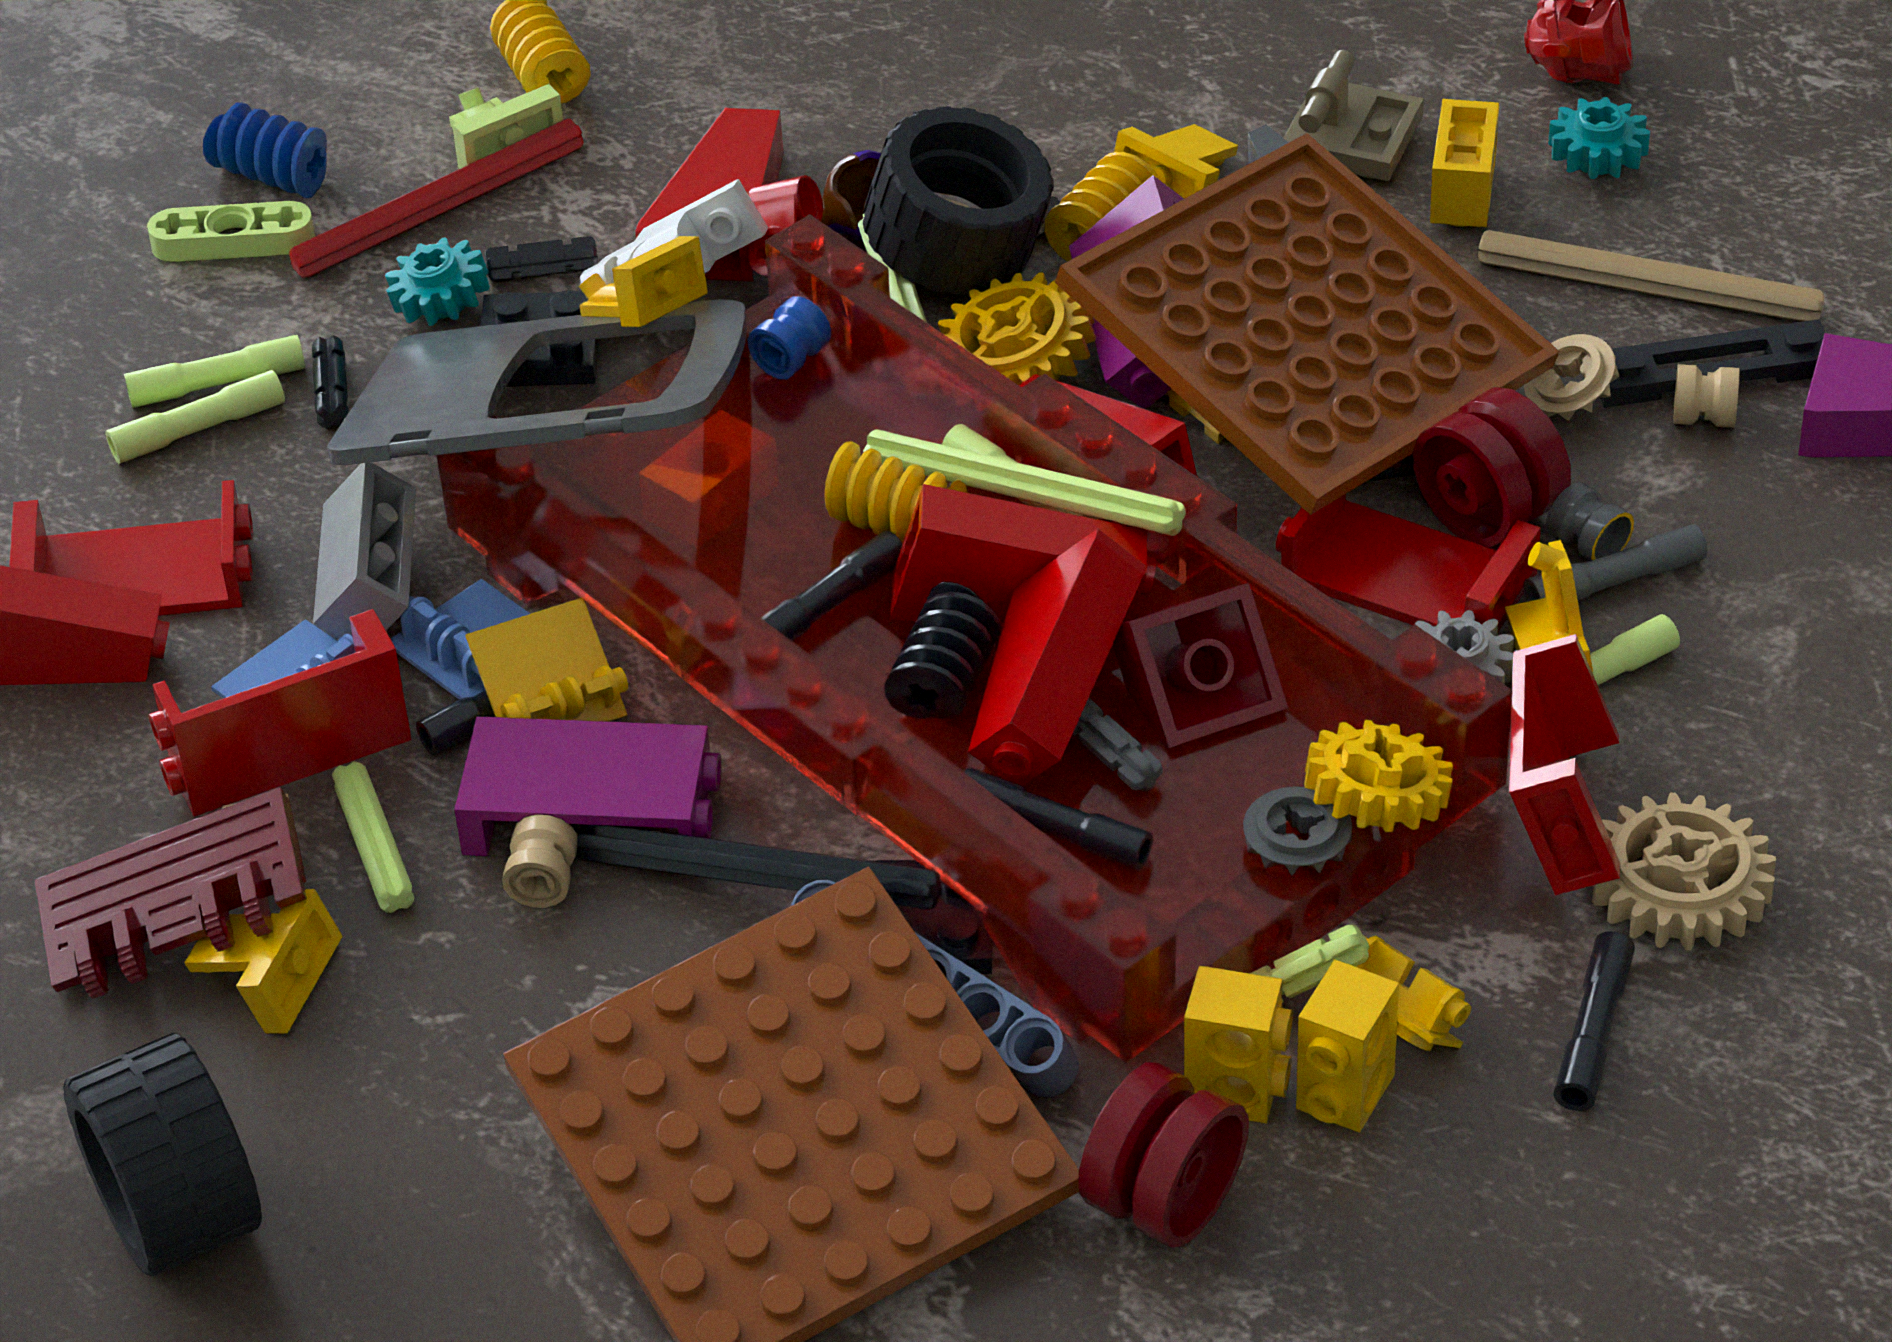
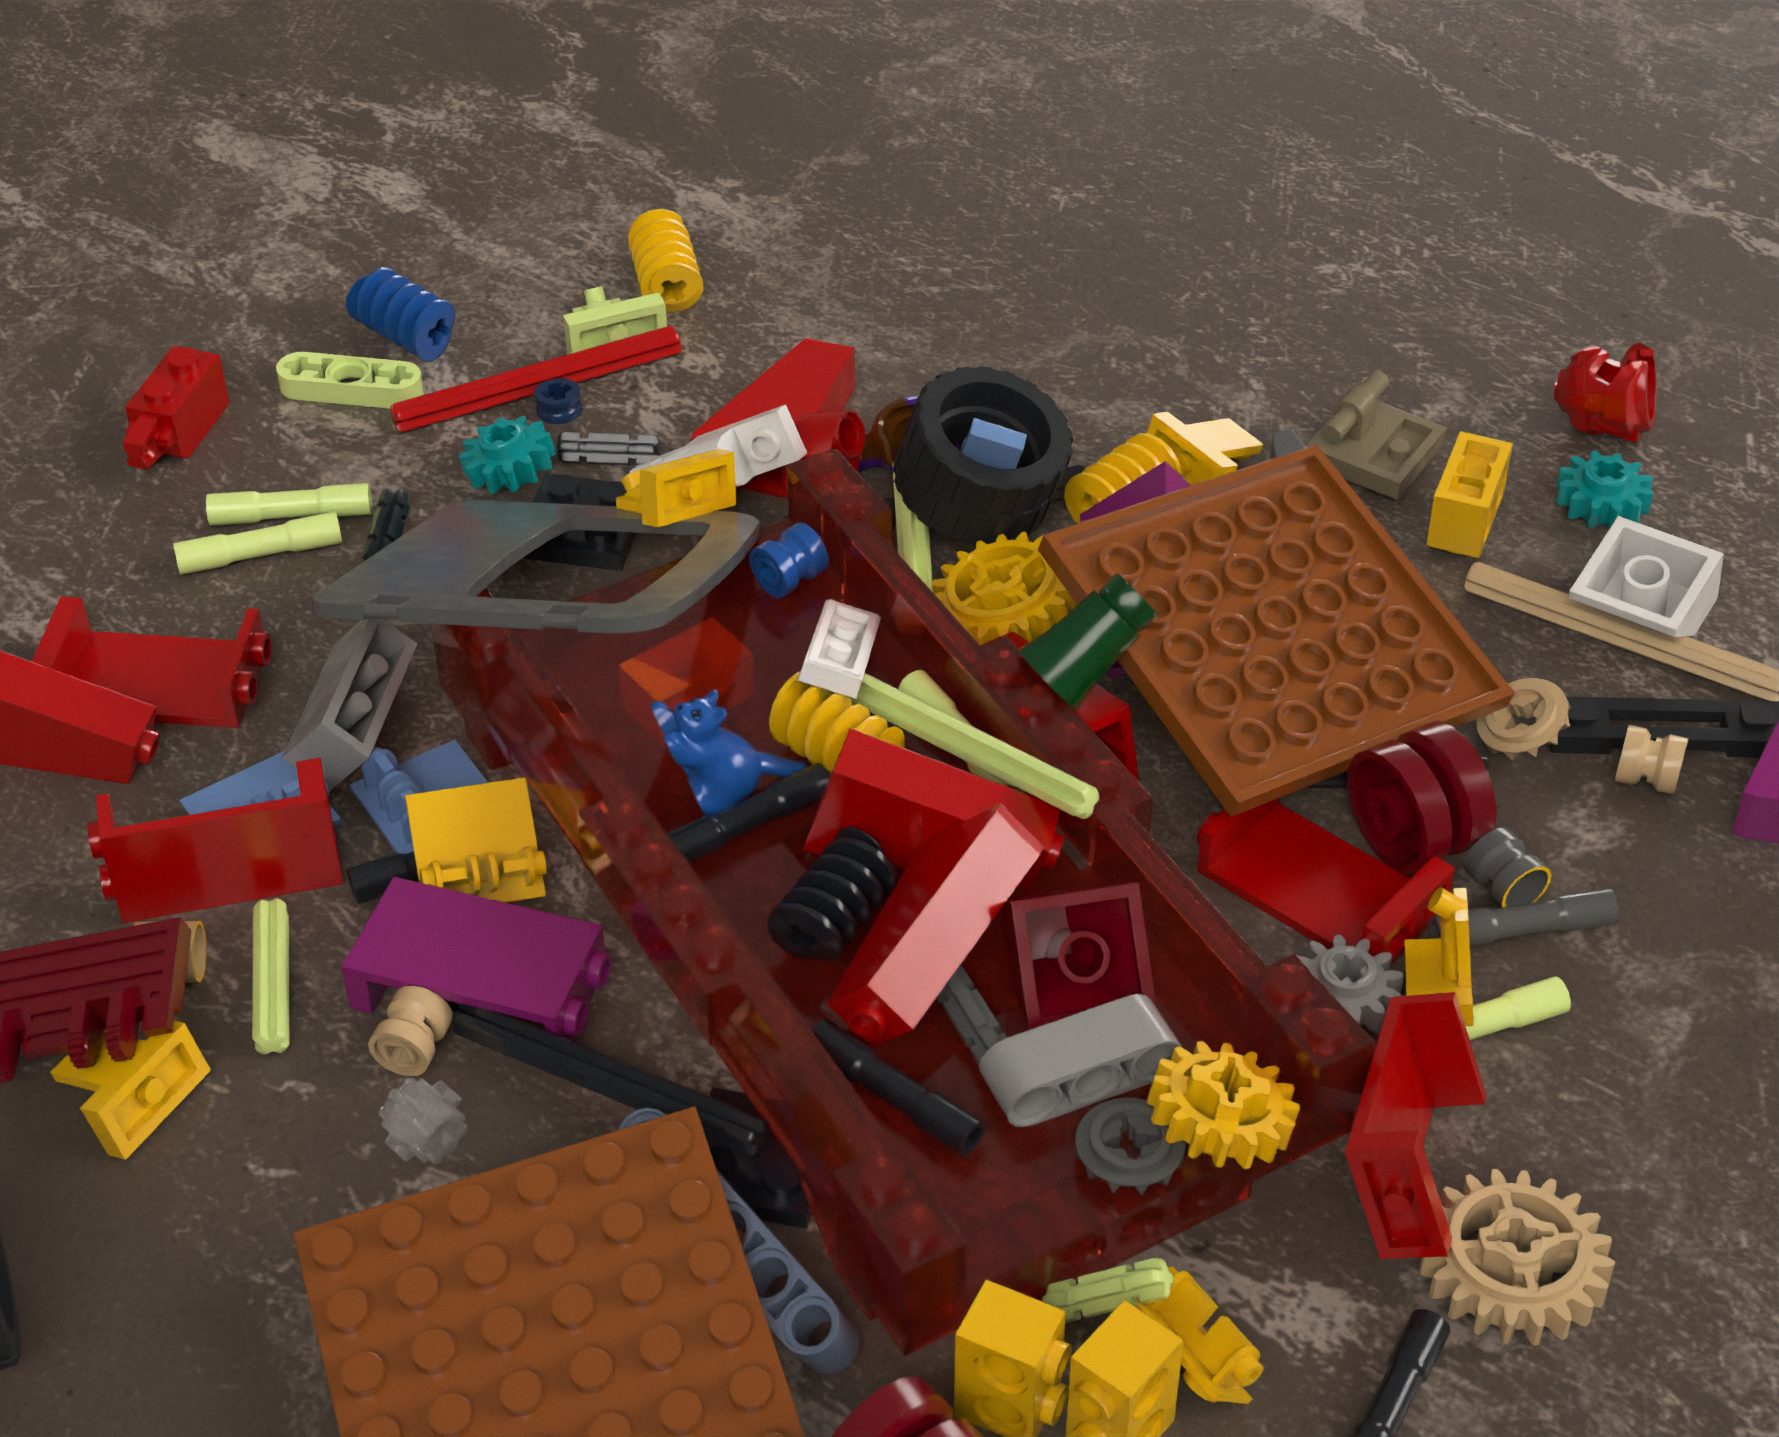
camera: 10 degrees right, 0 degrees up
(54, 286) = (175, 406): none -> red hinge
(468, 217) = (558, 401): none -> dark blue bush
(584, 939) = (423, 1120): none -> clear gear
(777, 543) = (717, 761): none -> blue animal
(875, 414) = (840, 648): none -> white tile
(975, 185) = (993, 445): none -> medium blue slope
(1135, 360) = (1089, 640): none -> dark green plant
(1226, 762) = (1077, 1060): none -> light grey beam
(1668, 217) = (1651, 578): none -> white slope

